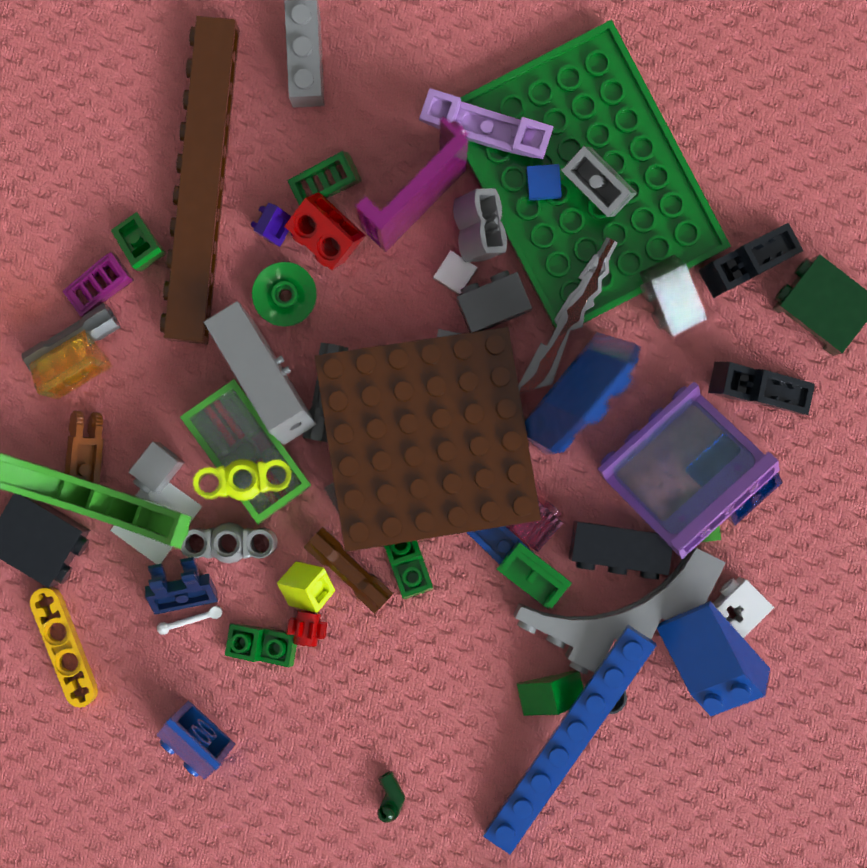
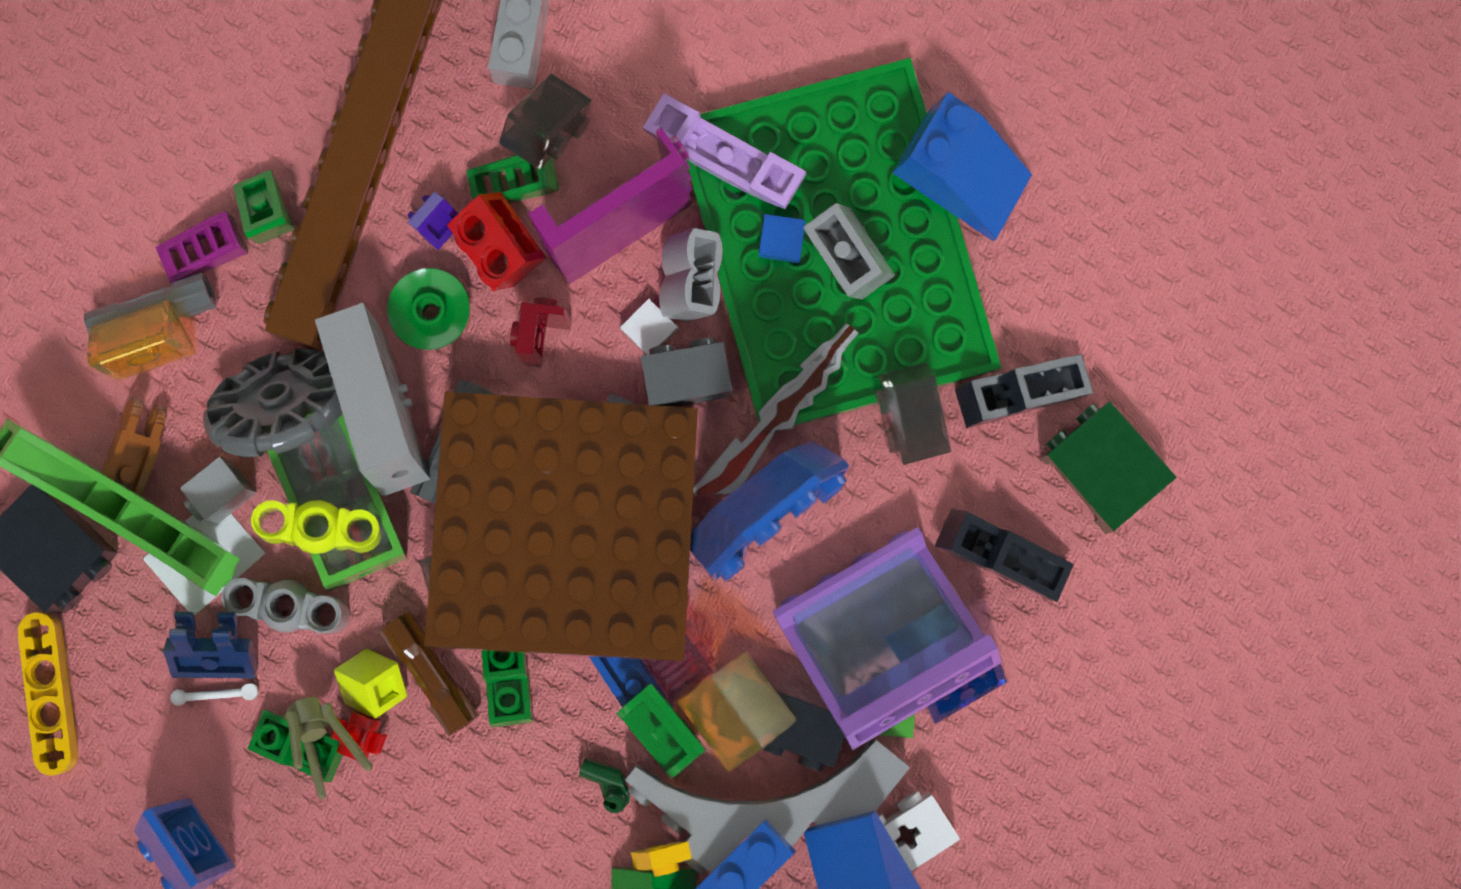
camera: 15 degrees right, 5 degrees down
(164, 406) = (273, 403): none -> dark grey plate
(268, 626) = (308, 721): none -> olive plant
(342, 129) = (546, 122): none -> clear smoke brick
(367, 297) = (530, 332): none -> dark red bracket
(502, 621) = (610, 781): none -> dark green arm
(555, 670) = (661, 858): none -> yellow plate
(589, 549) = (737, 711): none -> clear yellow slope
(670, 95) = (964, 166): none -> blue slope

